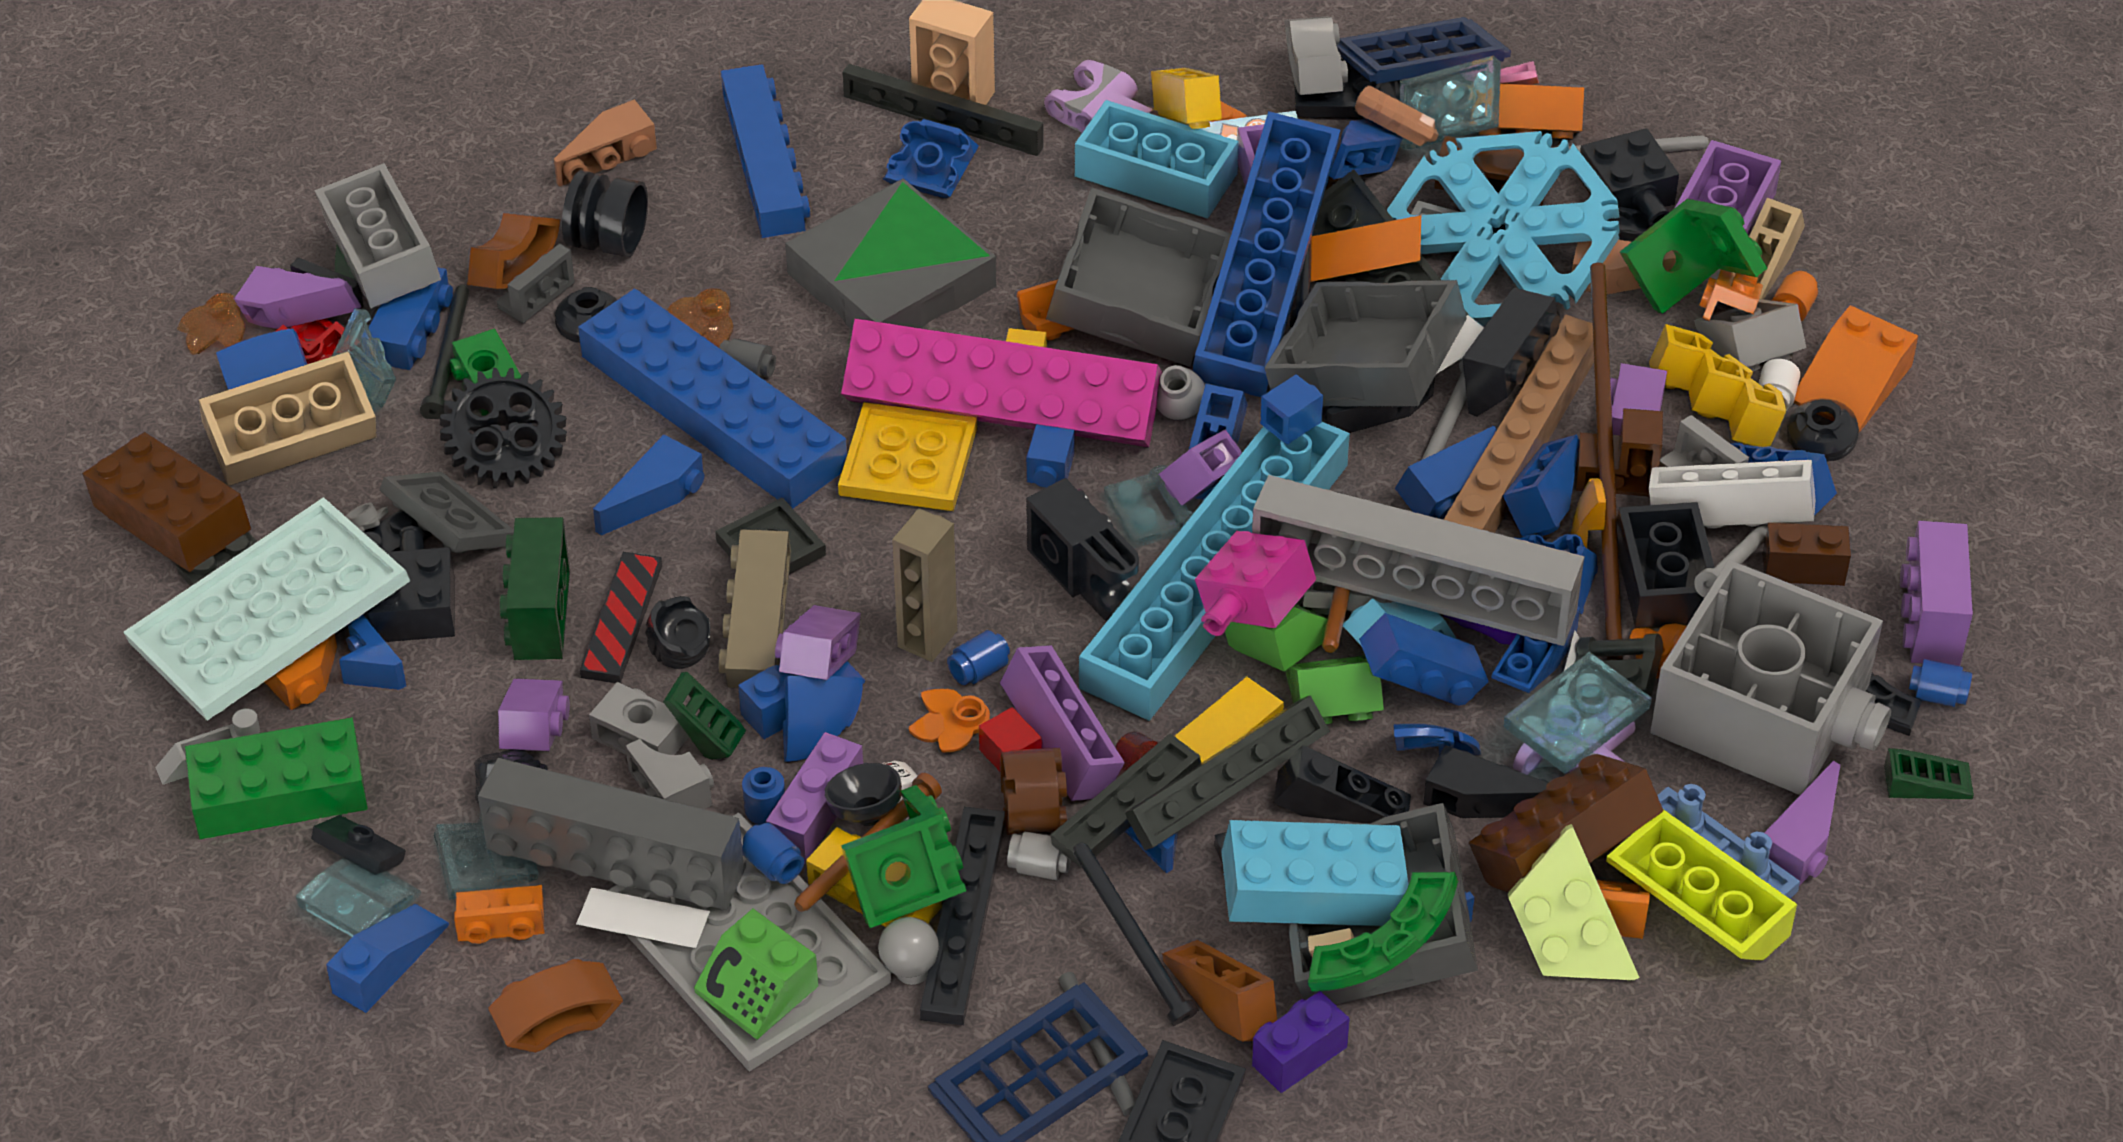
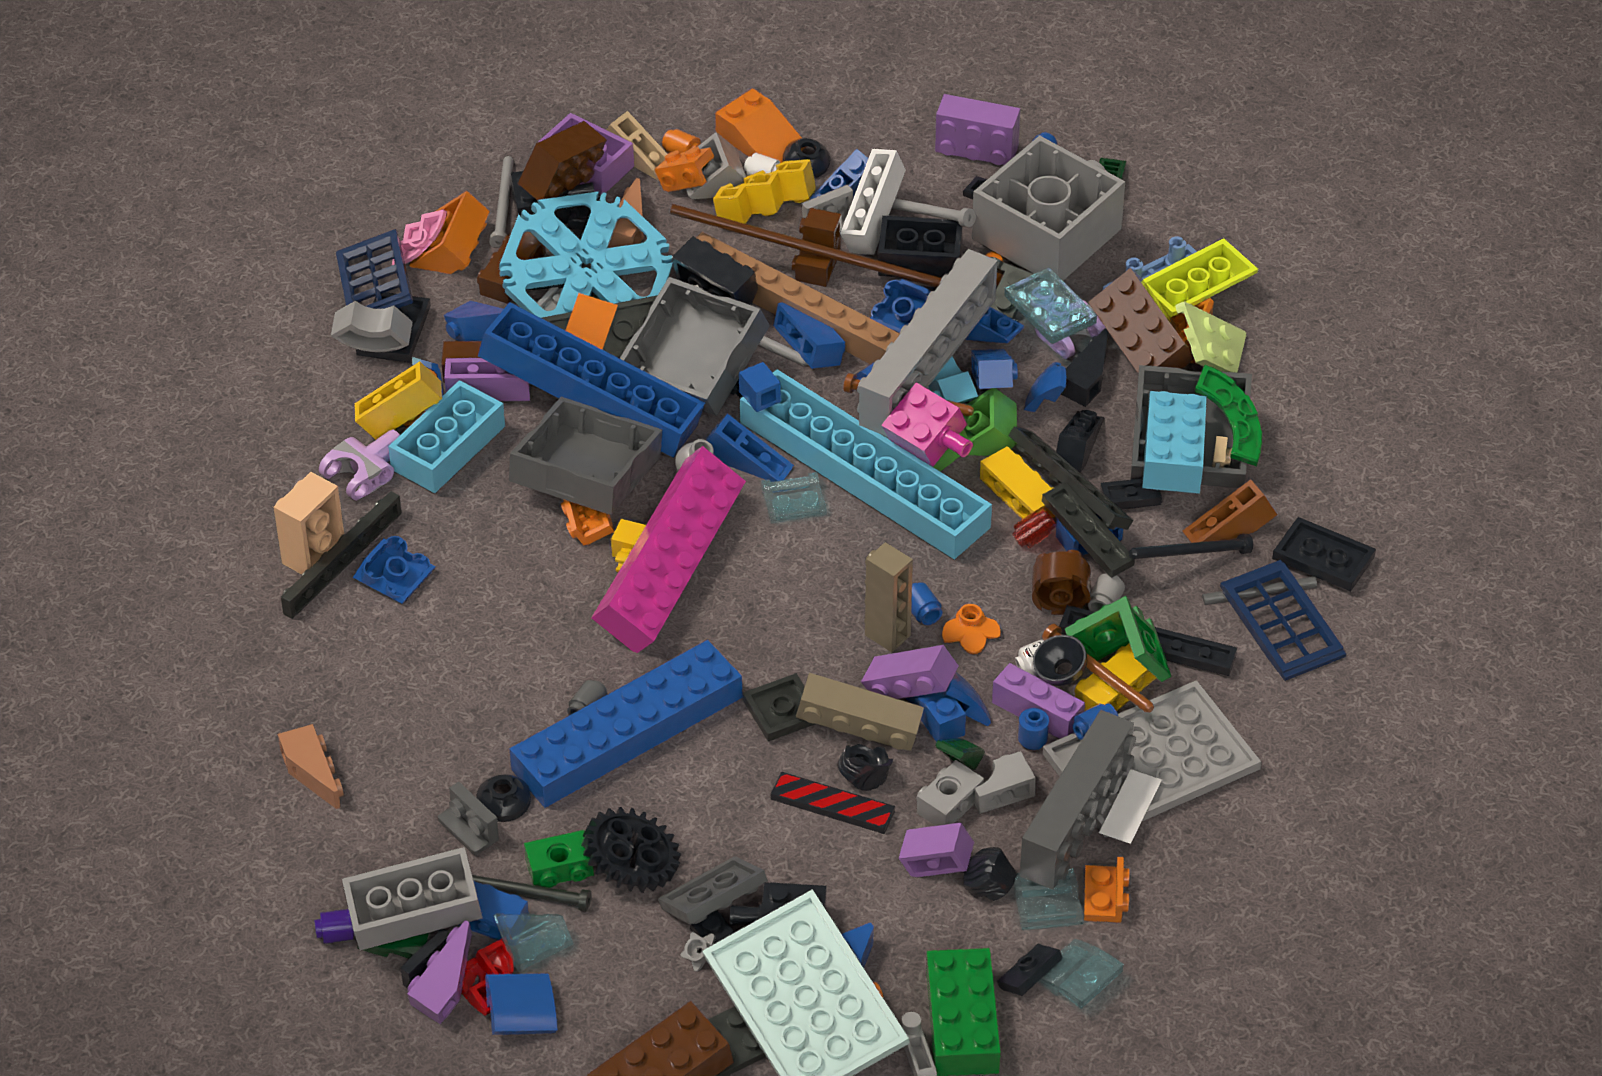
camera: 80 degrees left, 0 degrees up
(212, 322) = (447, 1046): clear orange plate -> none
(288, 418) = (591, 982): tan brick -> none
(381, 955) = (1143, 958): blue slope -> none
(512, 249) = (427, 826): dark orange brick -> none
(536, 588) = (814, 834): dark green brick -> none
(555, 1004) = (1200, 859): dark orange brick -> none
(604, 213) = (411, 763): black wheel -> none
(652, 484) = (705, 764): blue slope -> none
(706, 320) = (532, 723): clear orange plate -> none
(757, 974) = (1200, 740): bright green slope -> none
(763, 151) = (351, 667): blue brick -> none
(891, 260) = (512, 603): dark grey tile -> none
(908, 456) = (715, 614): yellow plate -> none
(908, 949) = (1185, 663): light grey piece -> none
(1006, 733) = (1006, 595): red brick -> none
(1050, 455) = (737, 540): blue brick -> none
(1061, 716) = (992, 563): medium lavender brick -> none
(1080, 547) = (847, 526): black brick -> none
(1200, 467) = (784, 454): medium lavender slope -> none
(1300, 1041) = (1282, 487): dark purple brick -> none
(1396, 116) = (454, 296): nougat rock -> none
(1457, 98) = (453, 264): clear light blue plate -> none
(1544, 487) = (843, 290): blue slope -> none
(1590, 510) = (865, 274): light orange brick -> none
(1636, 389) = (762, 248): medium lavender brick -> none
(1645, 147) = (562, 161): none -> reddish brown brick
(1703, 241) = (648, 153): green bracket -> none
(1803, 829) = (1147, 233): medium lavender slope -> none
(1807, 553) = (922, 180): reddish brown brick -> none

